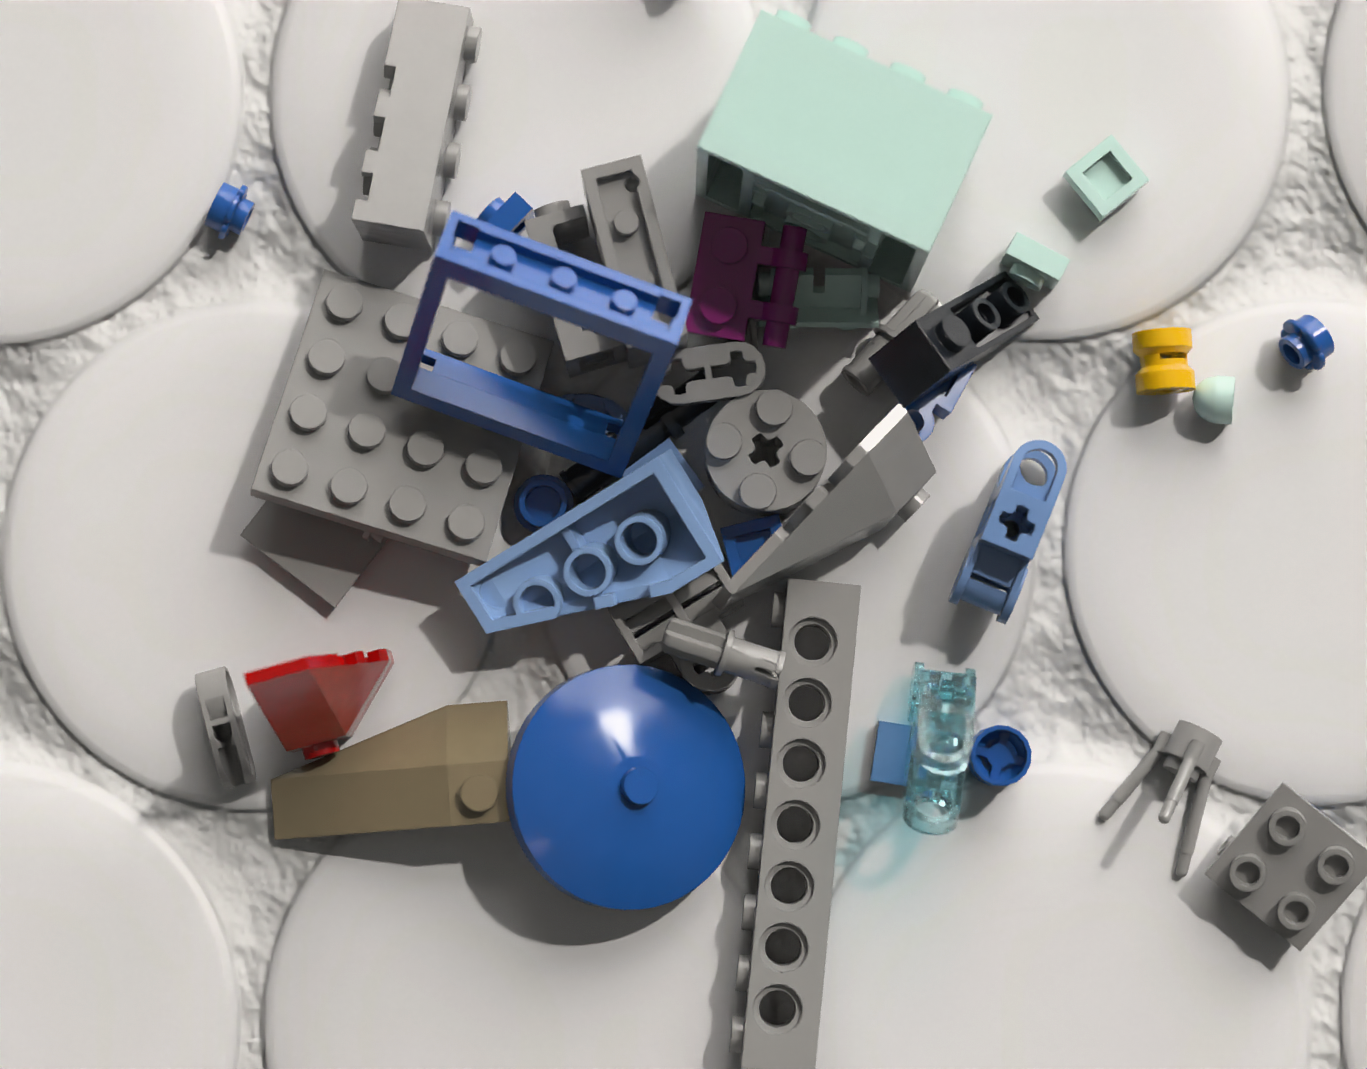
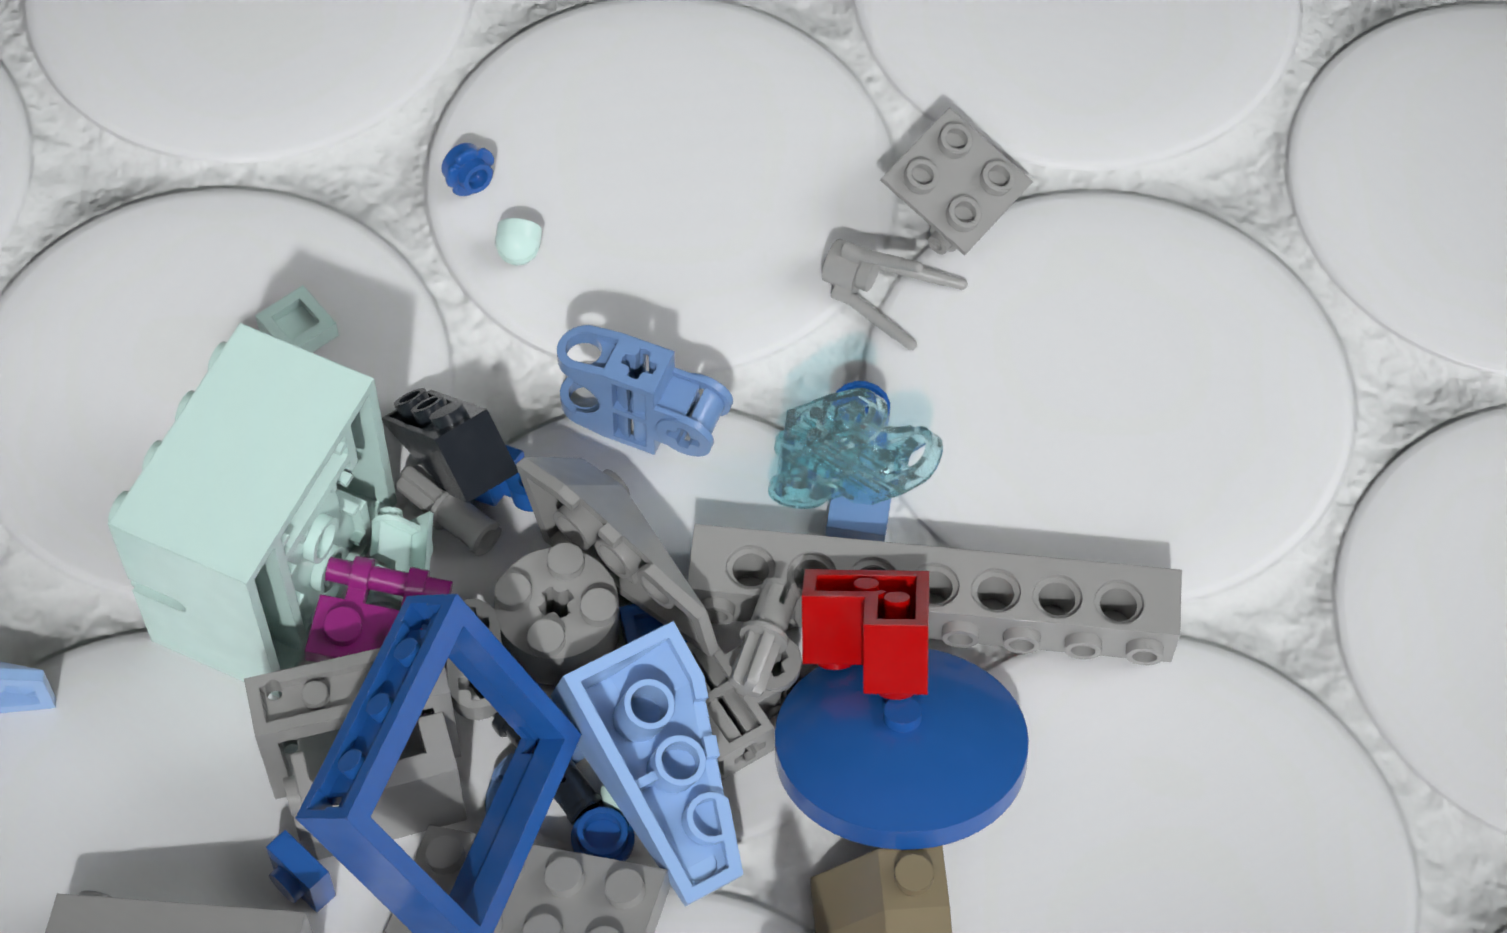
camera: 90 degrees left, 25 degrees down
(742, 759) = (870, 622): none -> red brick
(1033, 263) = (385, 368): light aqua plate -> none
(1163, 361) = (479, 279): yellow wheel -> none

